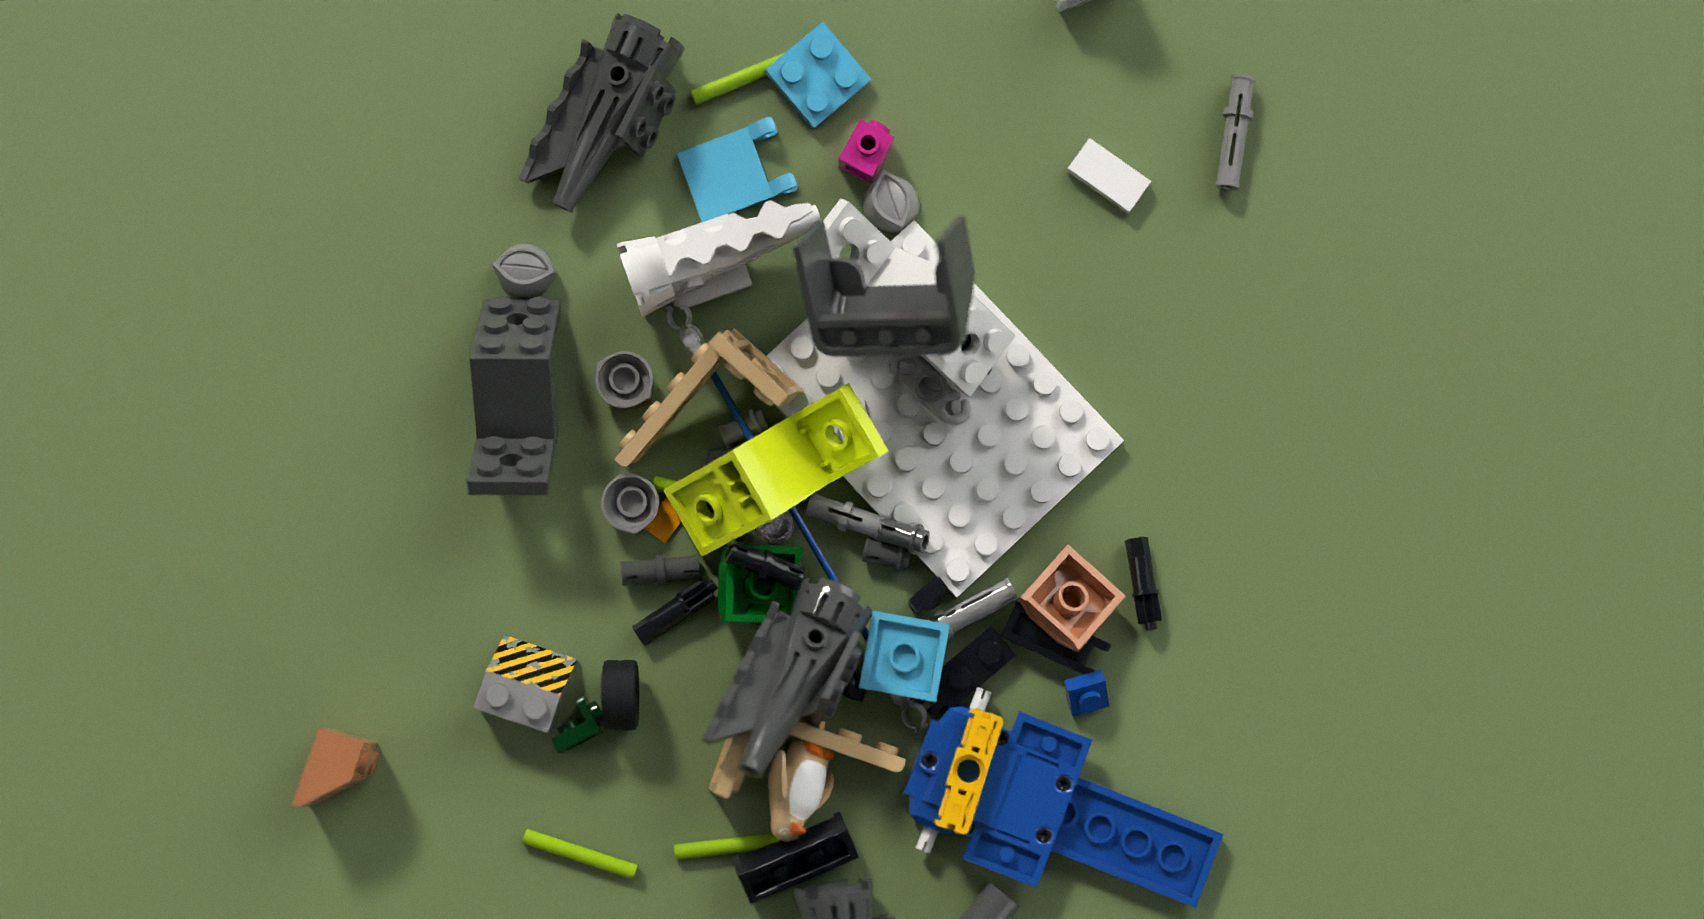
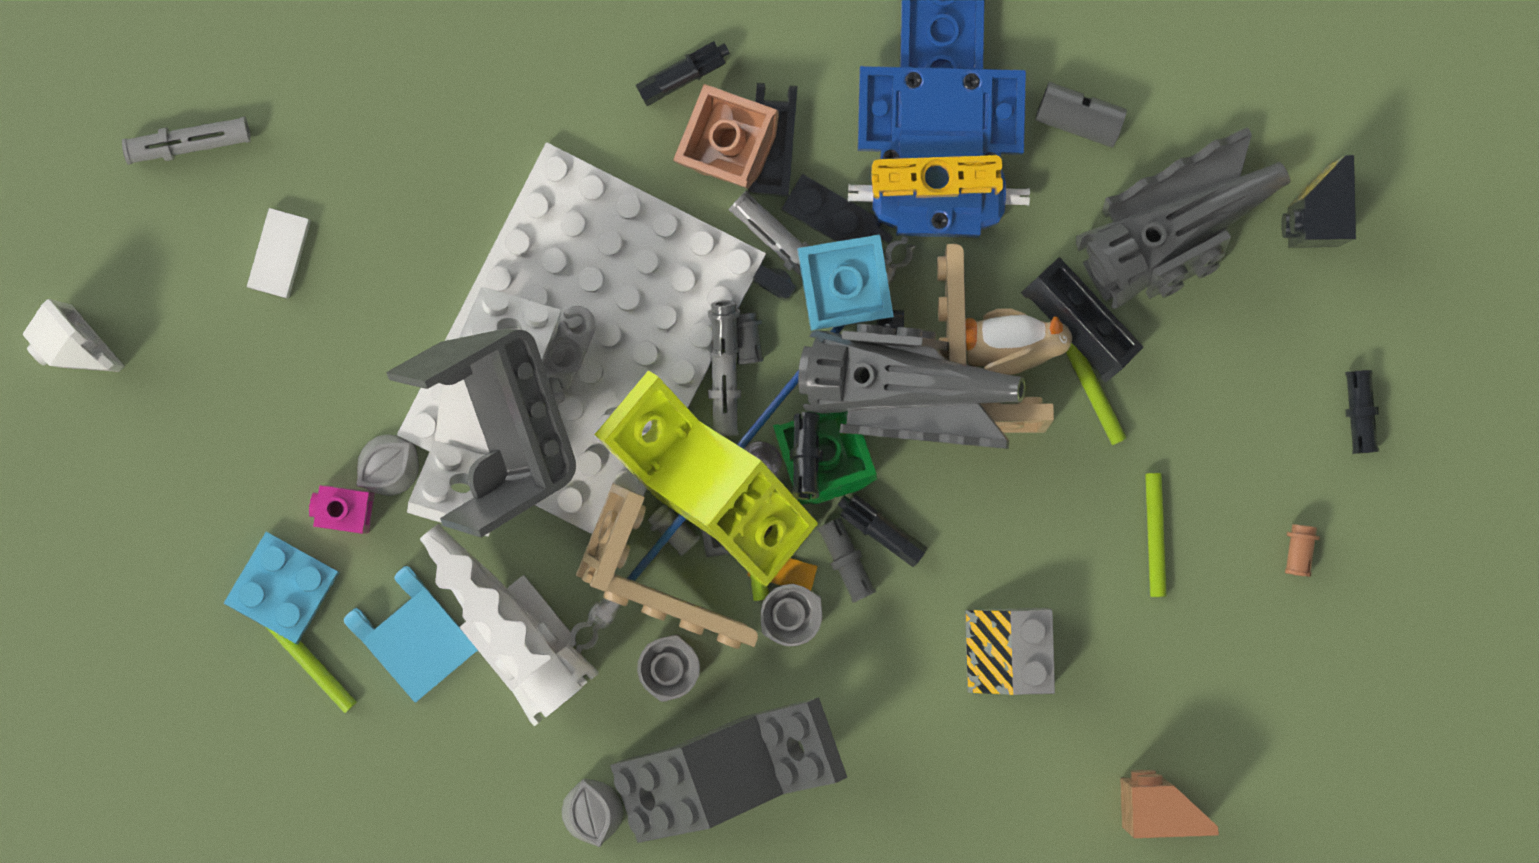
camera: 105 degrees left, 5 degrees up
(575, 733) = (1039, 583): dark green bracket -> none
(605, 104) = (394, 793): dark grey piece -> none
(620, 695) = (987, 552): black tyre -> none
(1086, 693) = (814, 89): blue plate -> none

